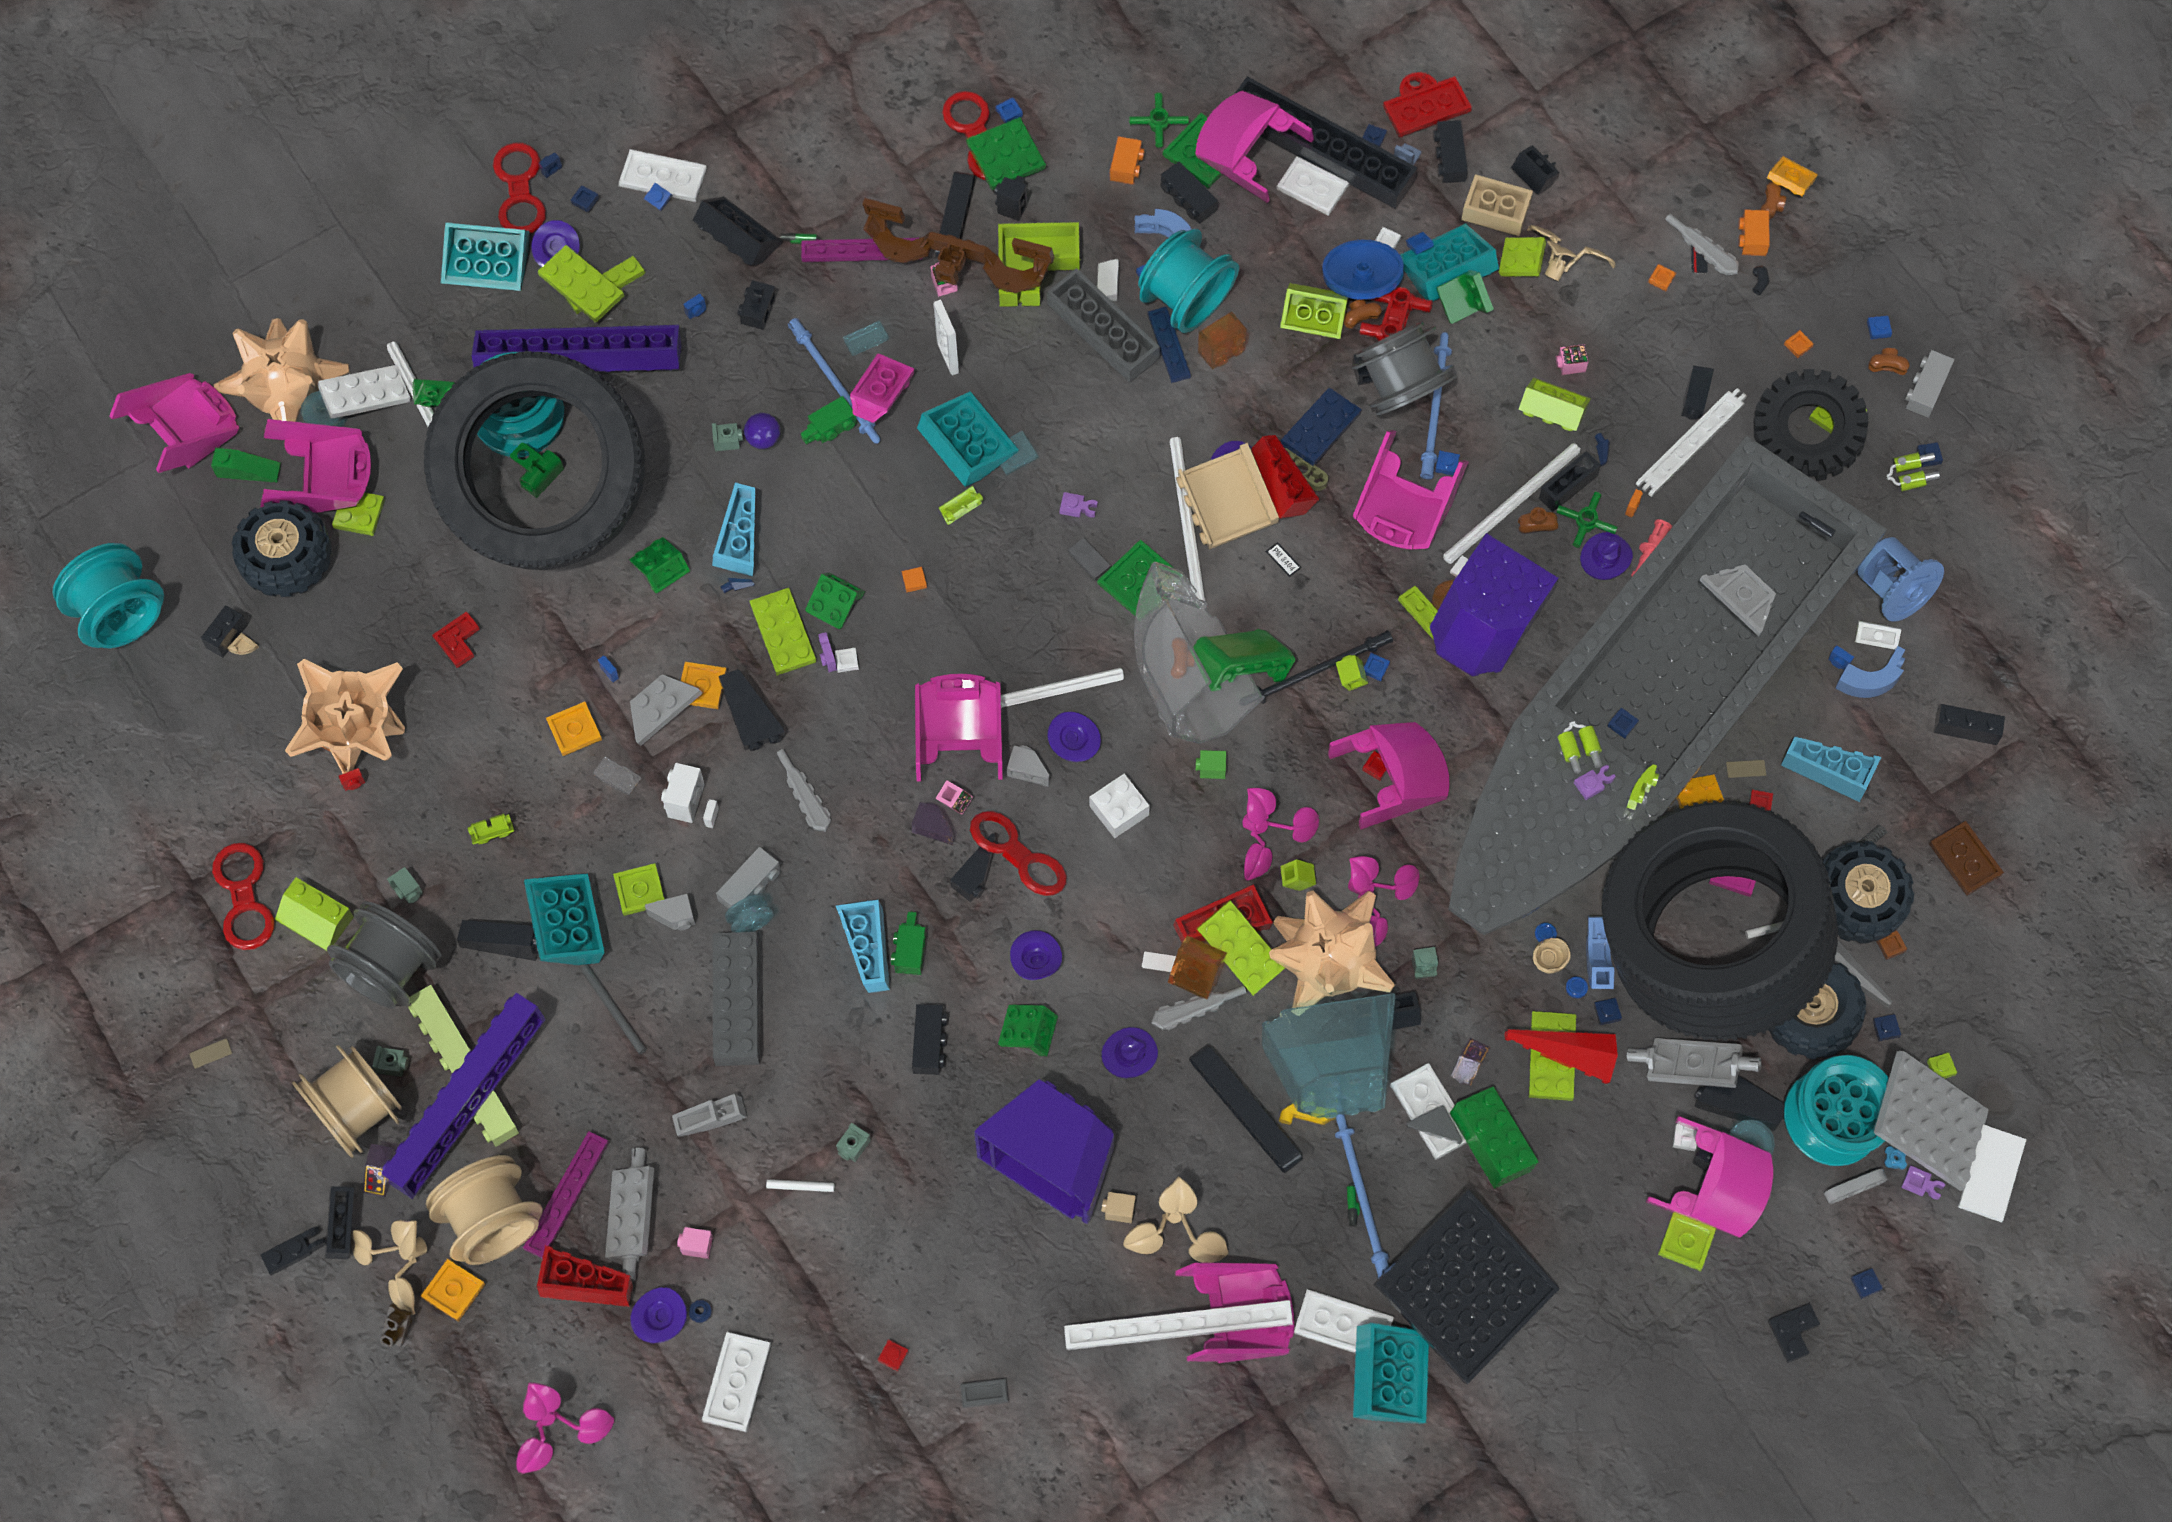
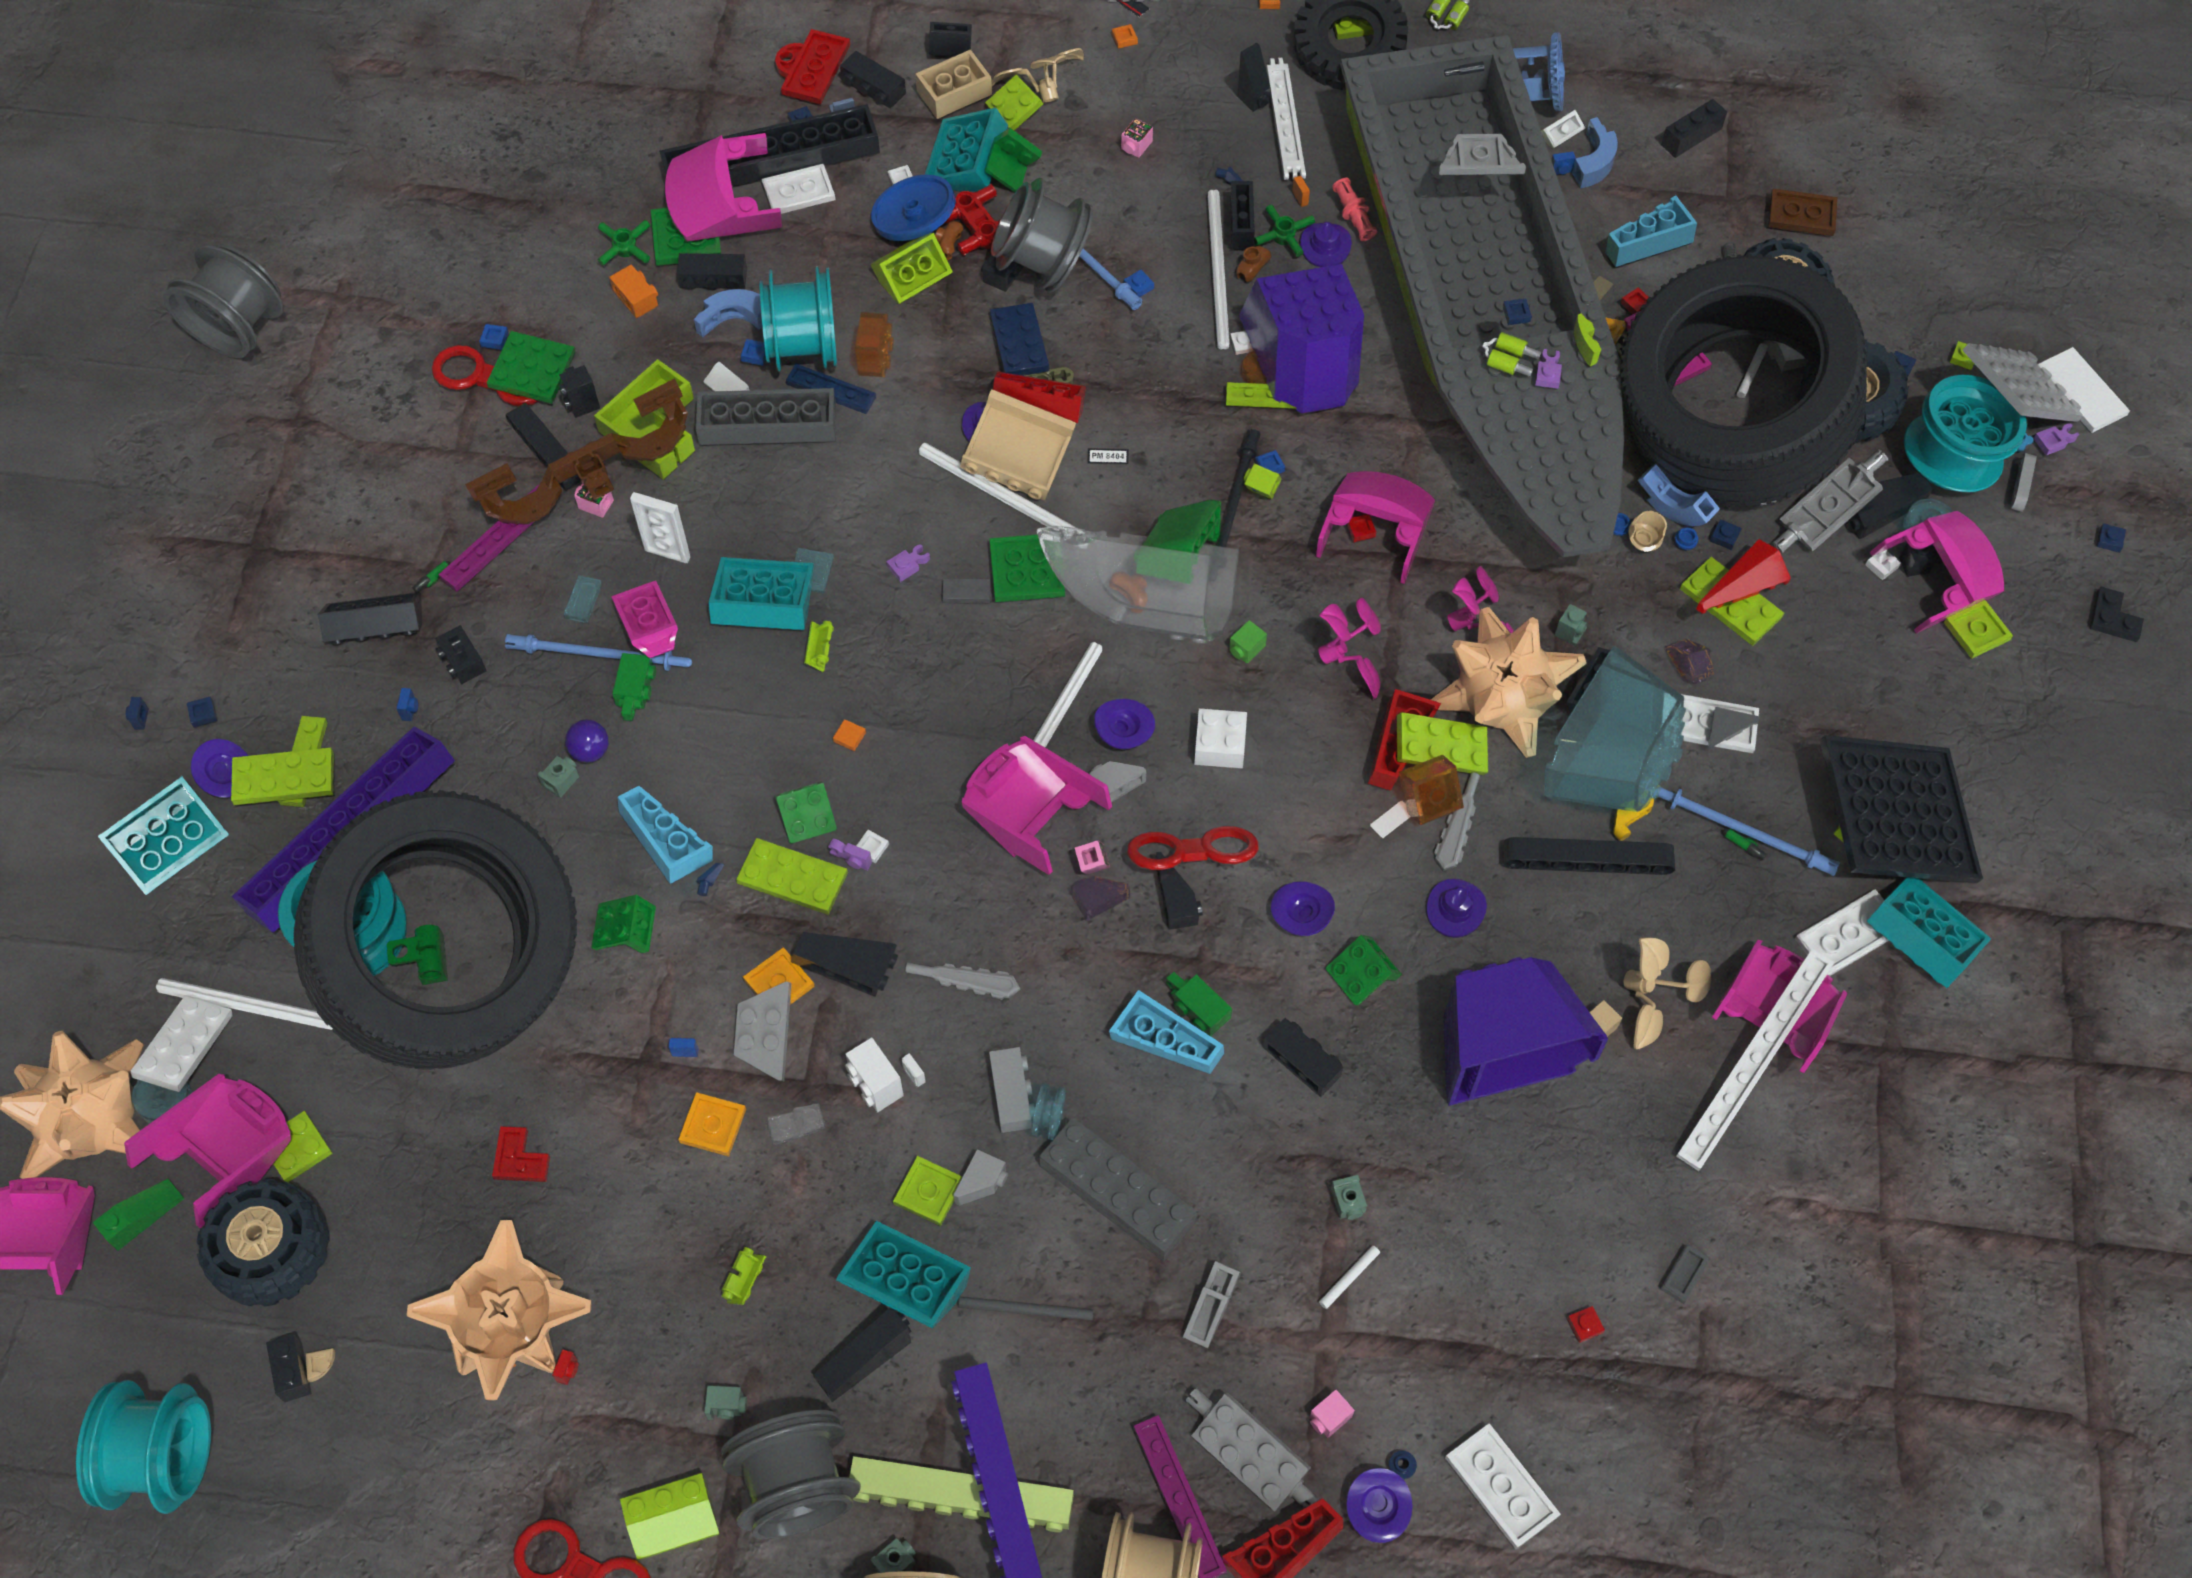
camera: 50 degrees left, 5 degrees down
(429, 392) = (254, 979): green bracket -> none
(519, 186) = (125, 755): red bar -> none
(658, 196) = (268, 652): blue plate -> none
(675, 175) = (251, 635): white tile -> none
(1298, 875) = (1411, 654): lime brick -> none
(1400, 509) = (1152, 341): dark pink windscreen -> none
(1419, 243) = (928, 158): blue tile -> none
(1493, 1137) = (1776, 692): green brick -> none
(1554, 404) = (1164, 178): lime slope -> none

